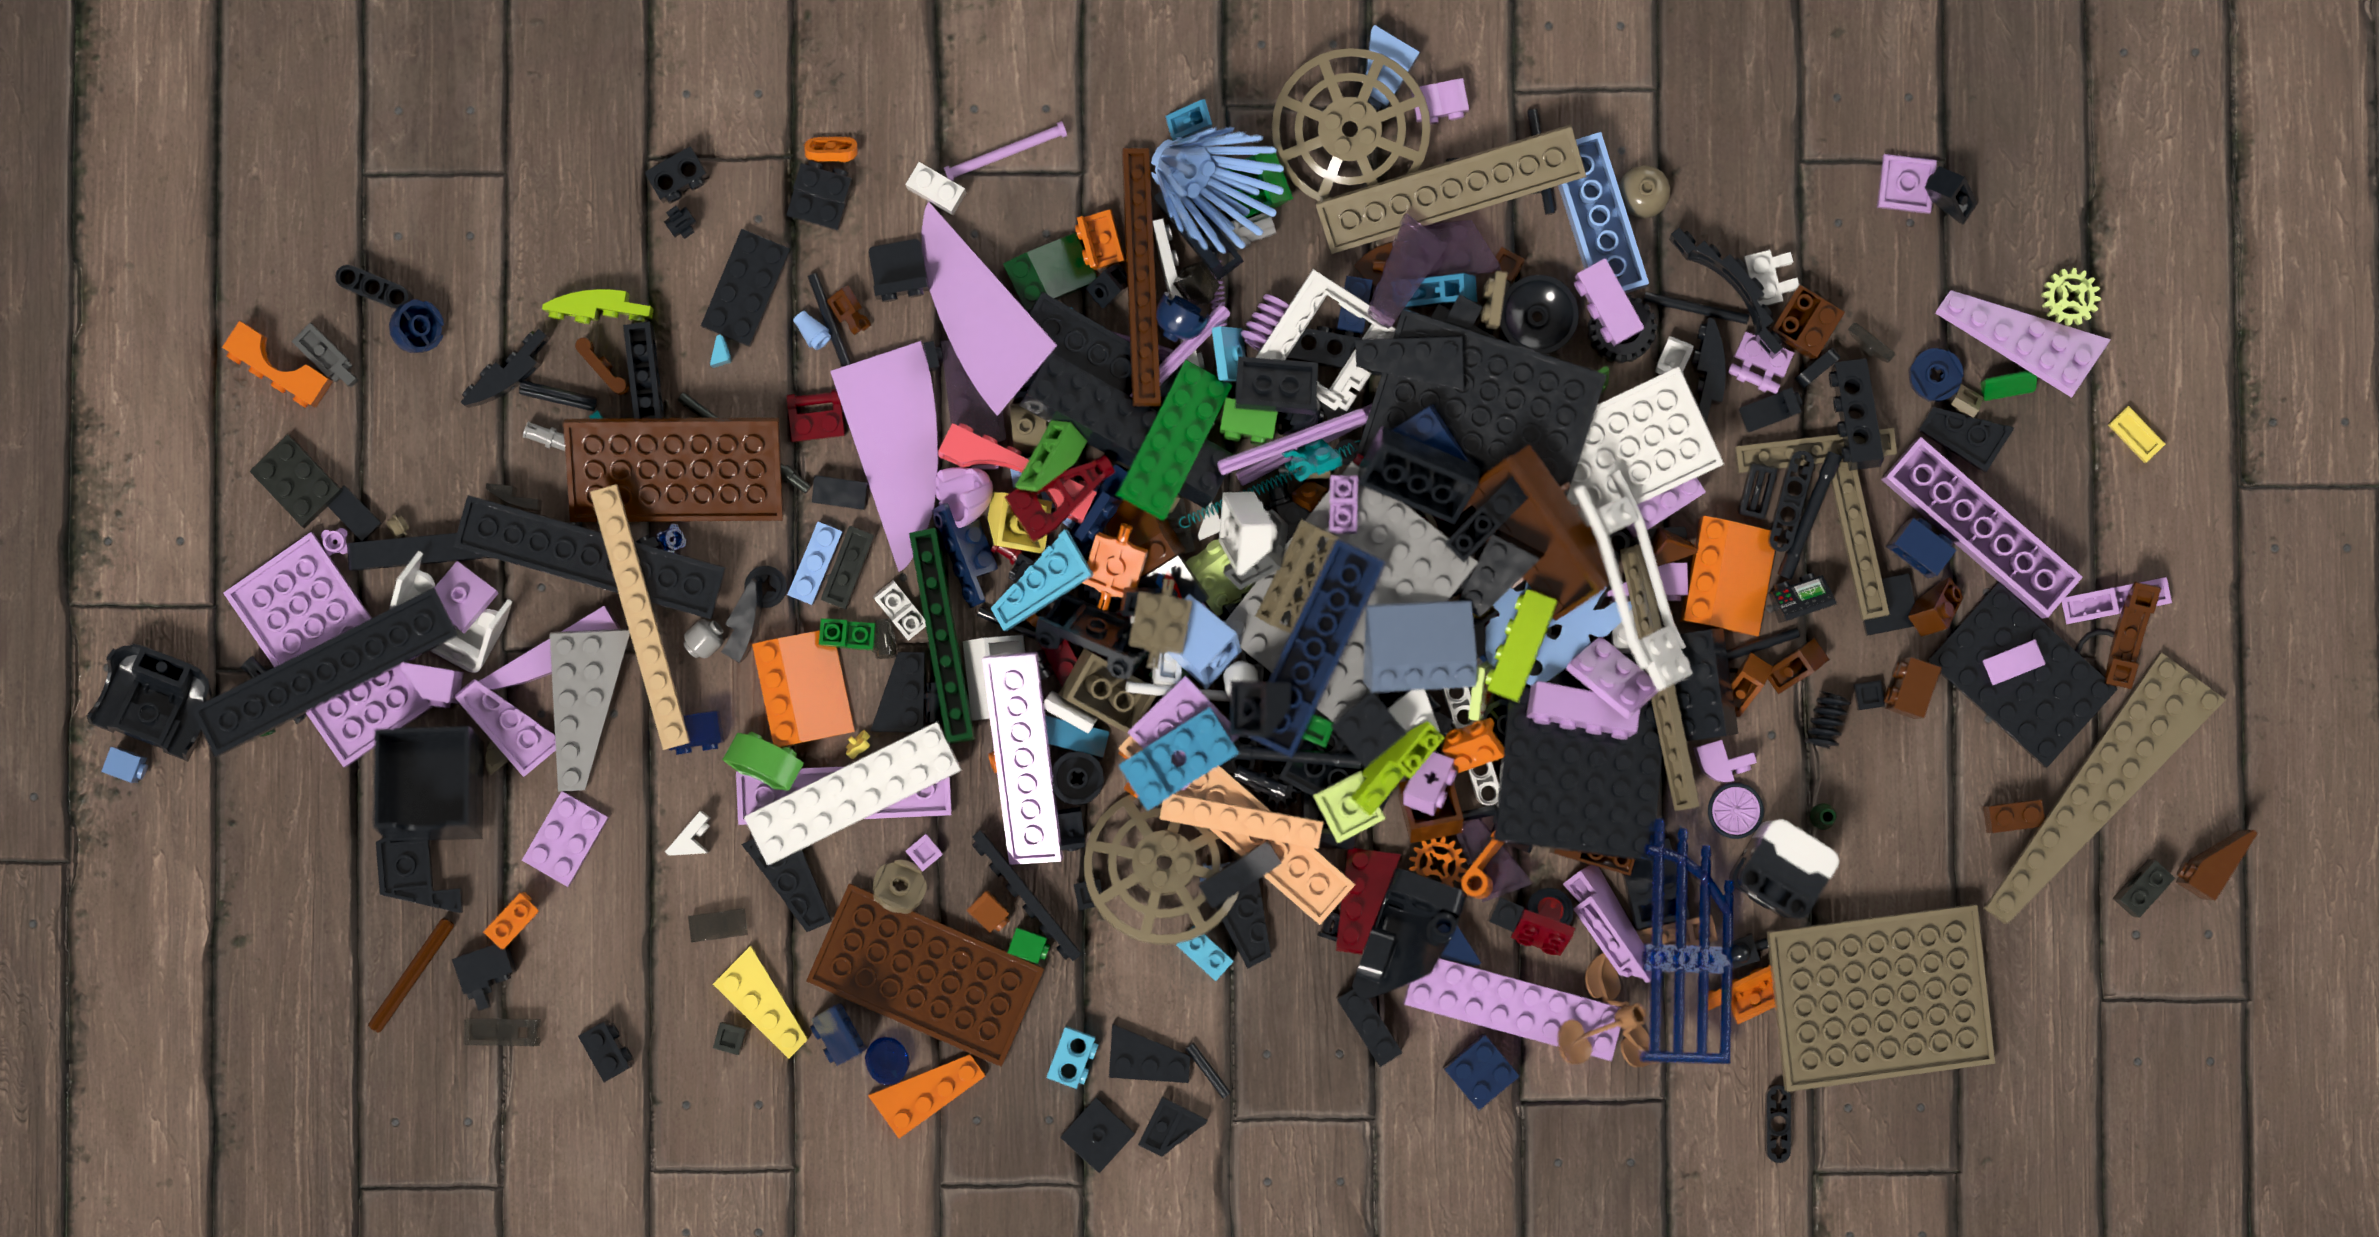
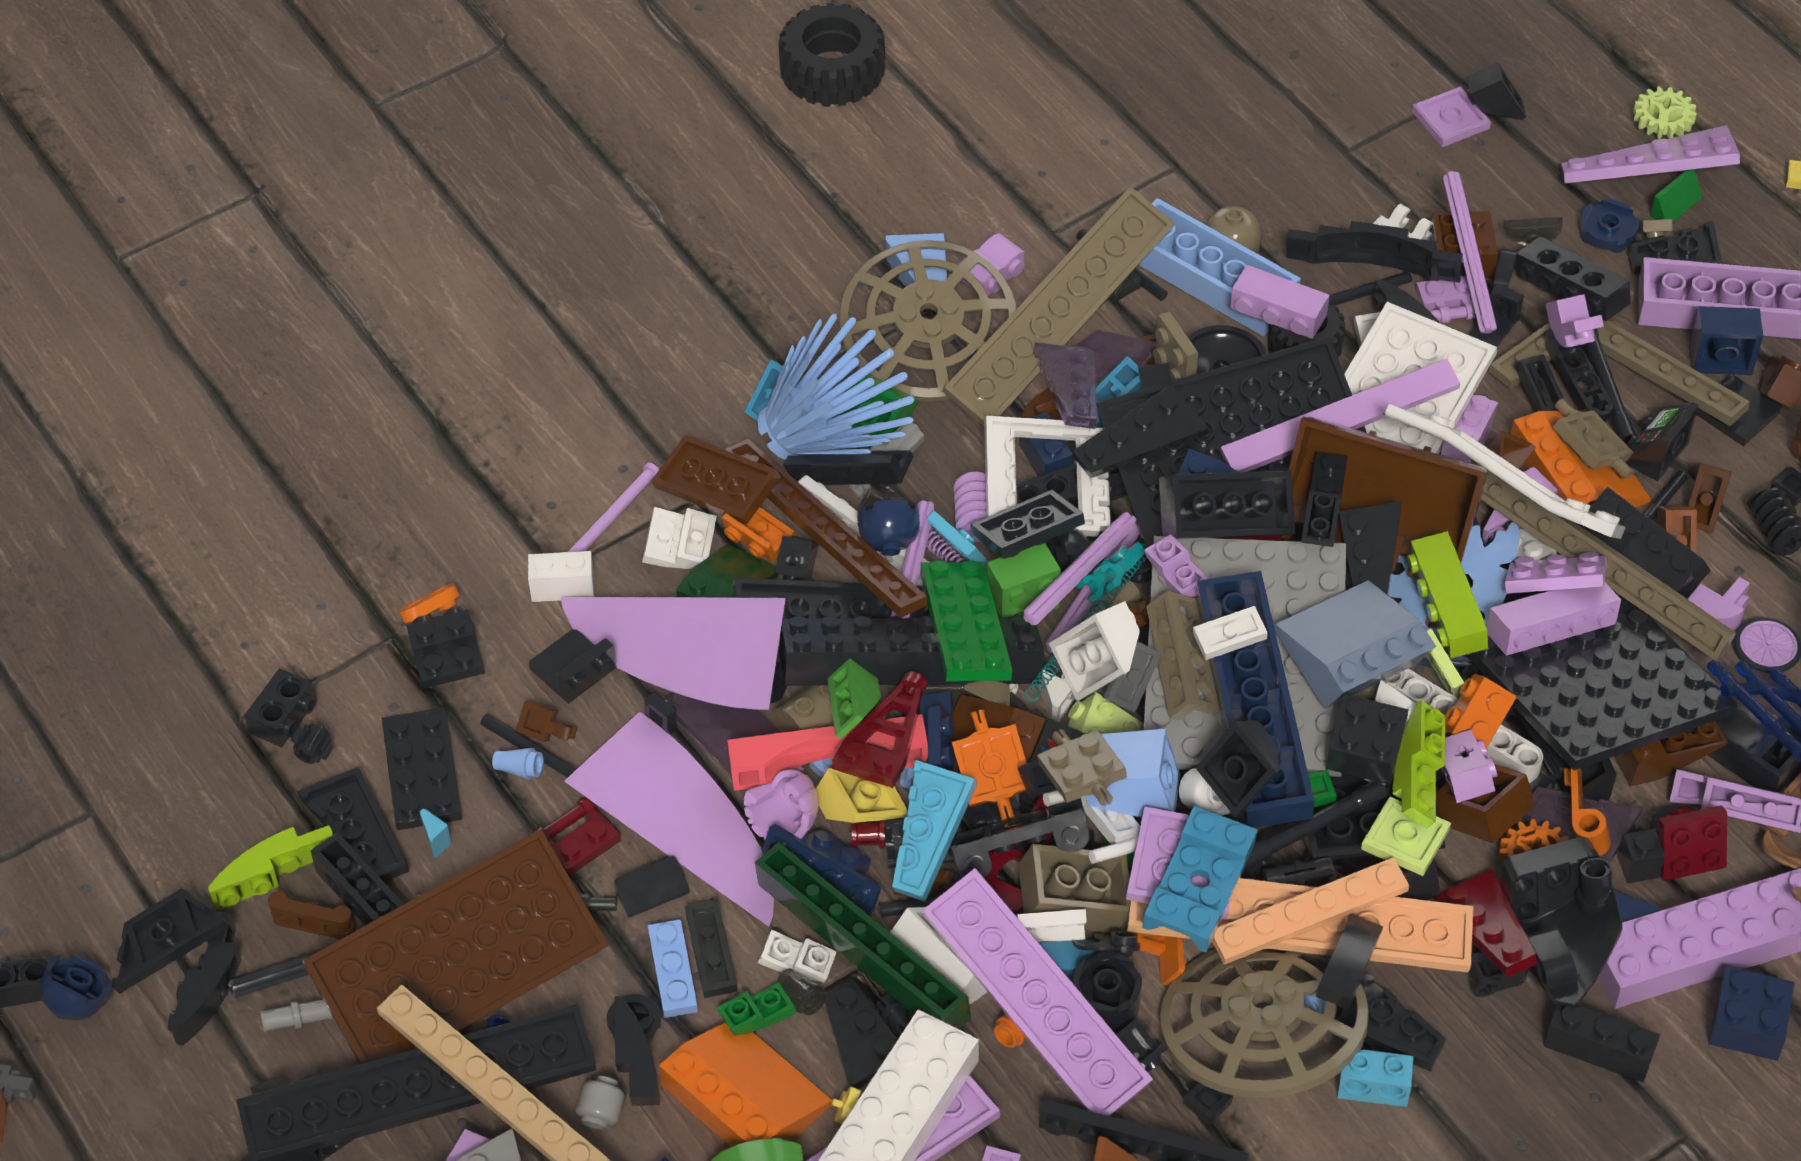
camera: 30 degrees left, 35 degrees down
(496, 320) = (163, 936): none -> black wing
(675, 302) = (351, 810): none -> black wing
(1043, 205) = (678, 539): none -> white slope
(1096, 177) = (716, 479): none -> reddish brown plate
(1101, 746) = (1118, 942): none -> black plate
(1324, 600) = (1230, 633): none -> white plate
(1564, 447) = (1349, 412): none -> lavender tile
(1746, 572) = (1592, 439): none -> dark tan plate
(1792, 345) = (1469, 249): none -> lavender axle
(1812, 464) = (1571, 321): none -> lavender brick

